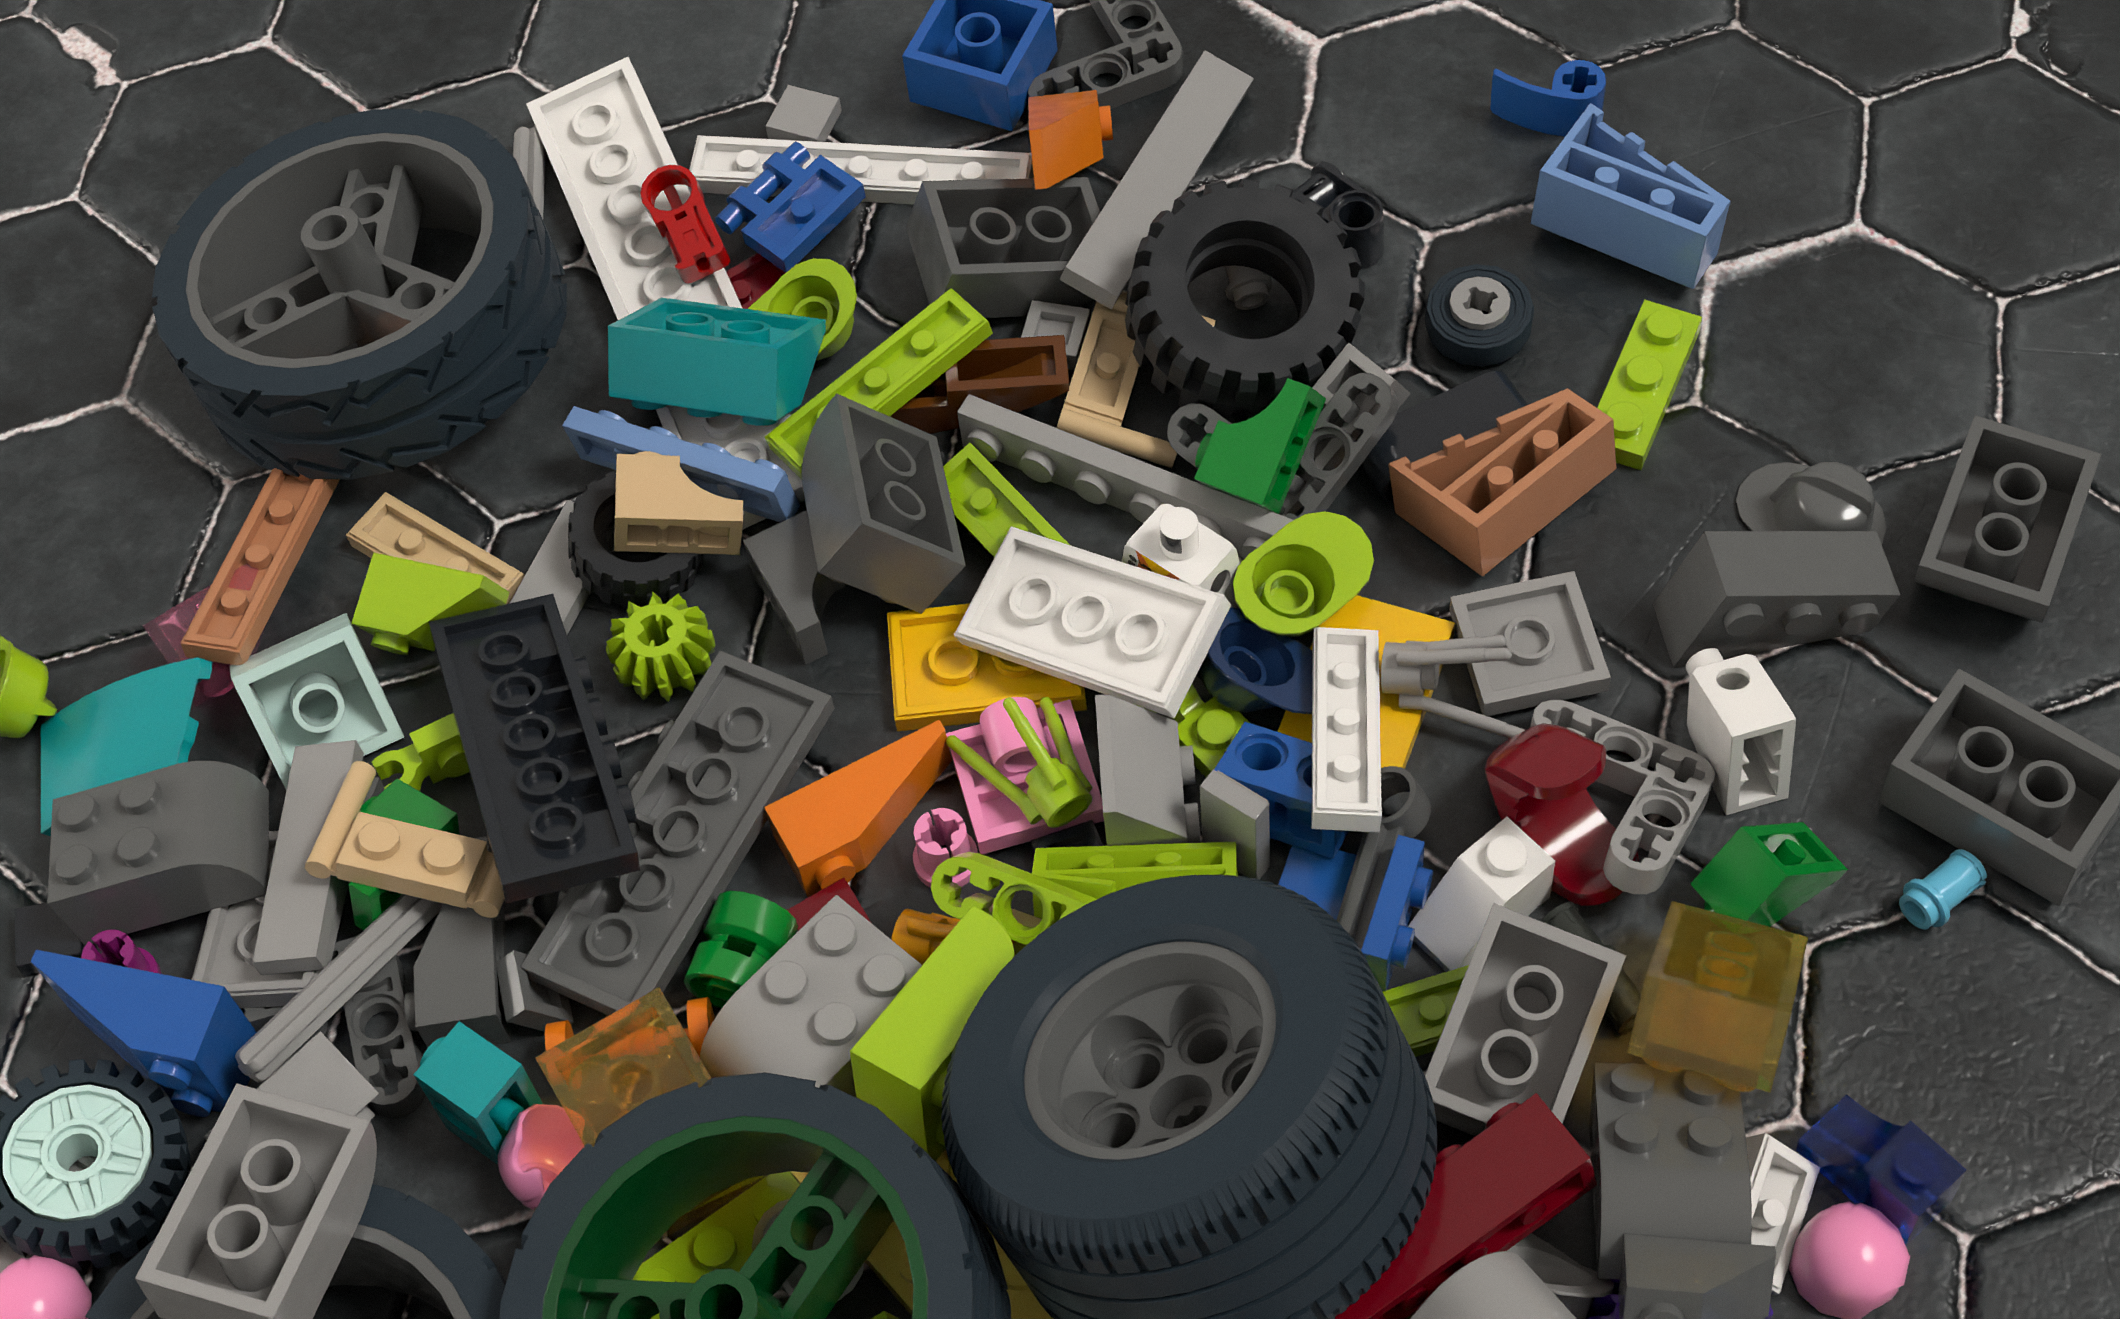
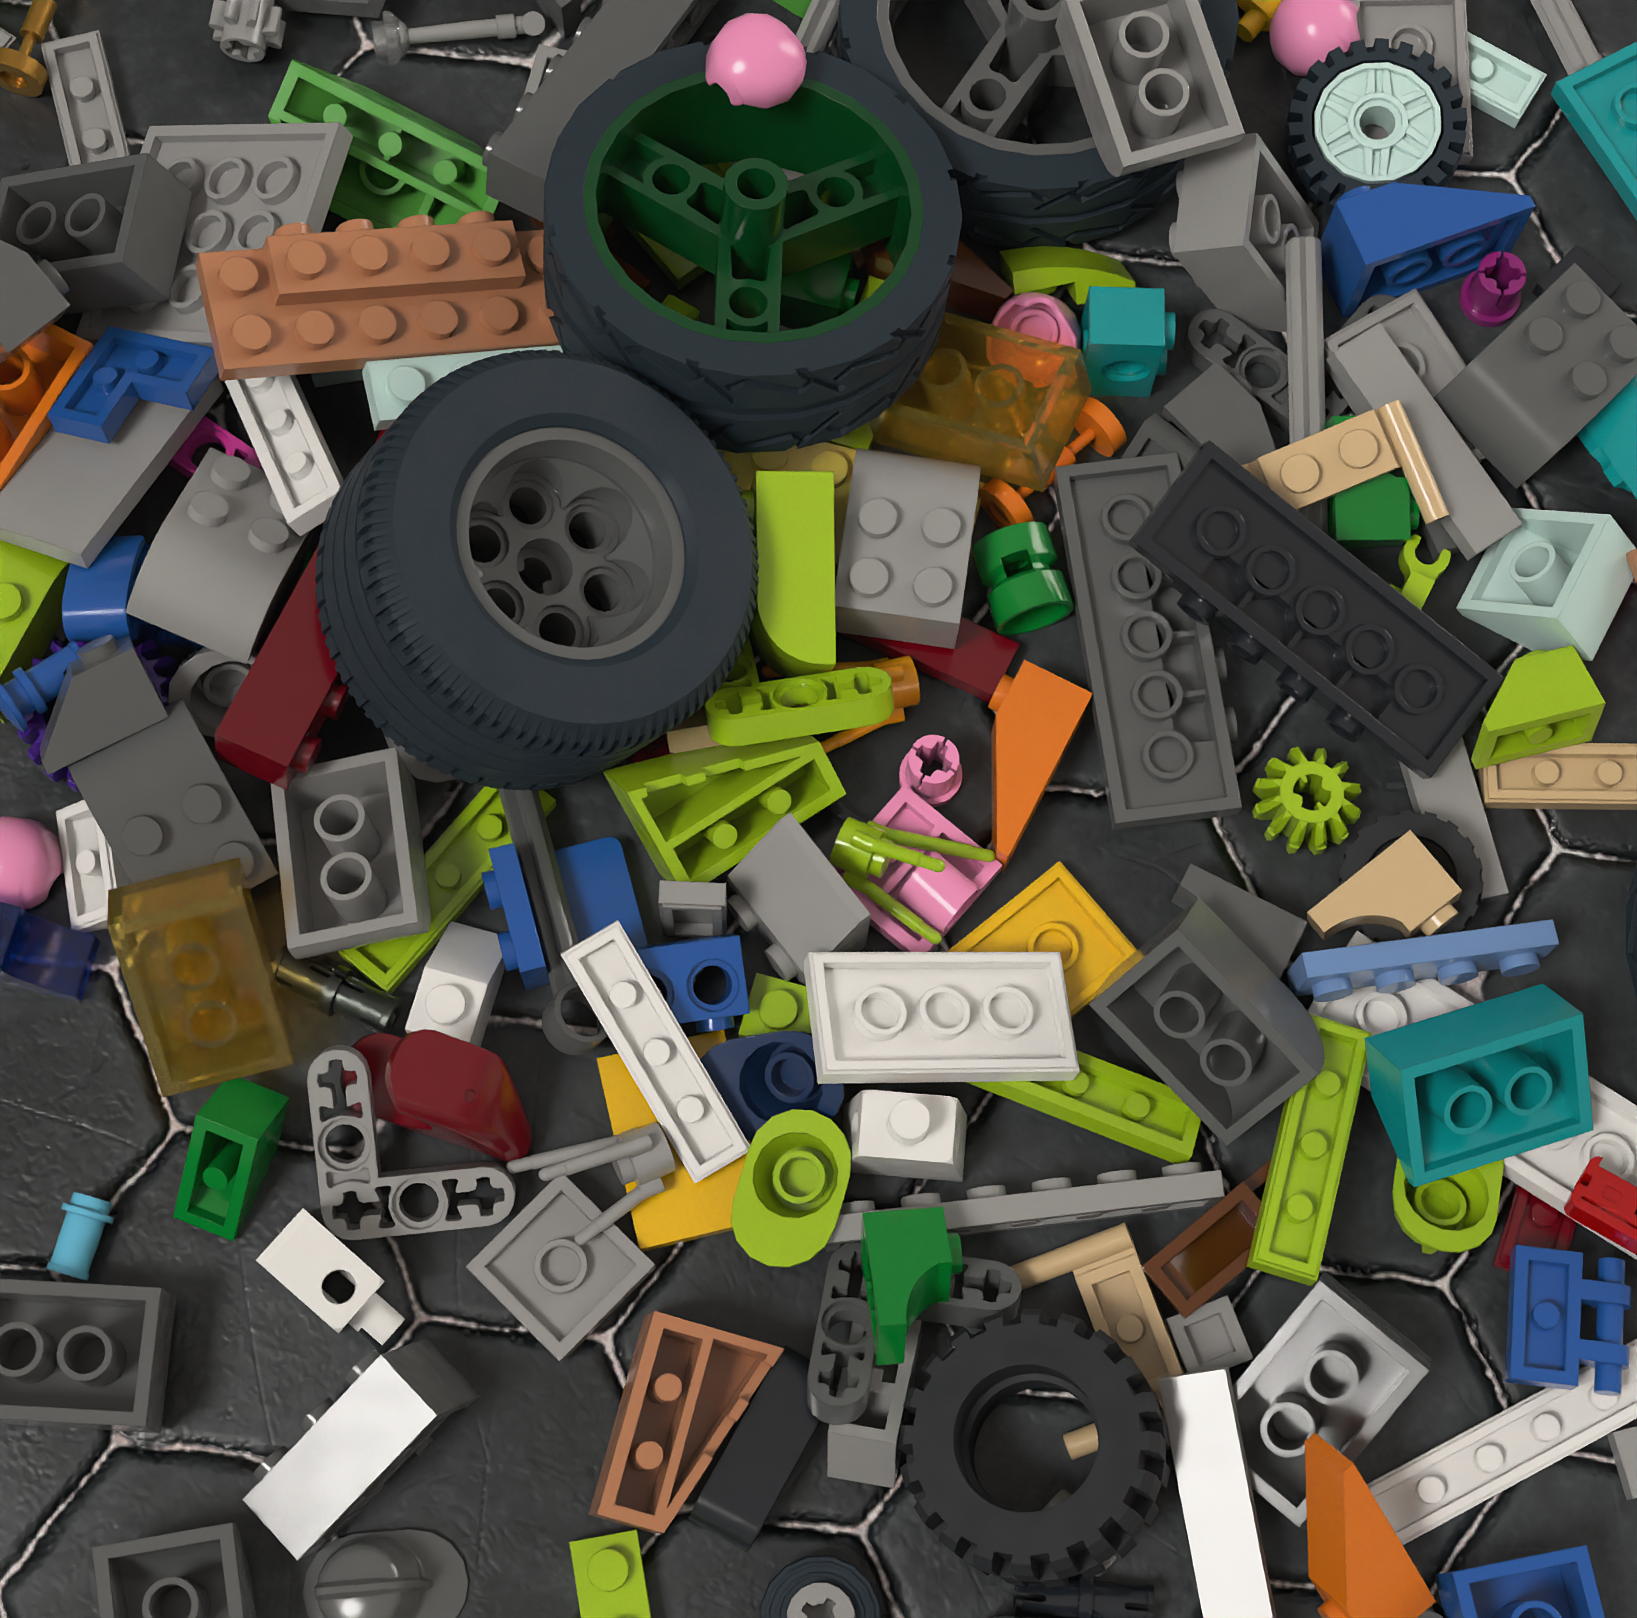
camera: 135 degrees right, 15 degrees up
(486, 1215) = (1047, 267): none -> lime slope

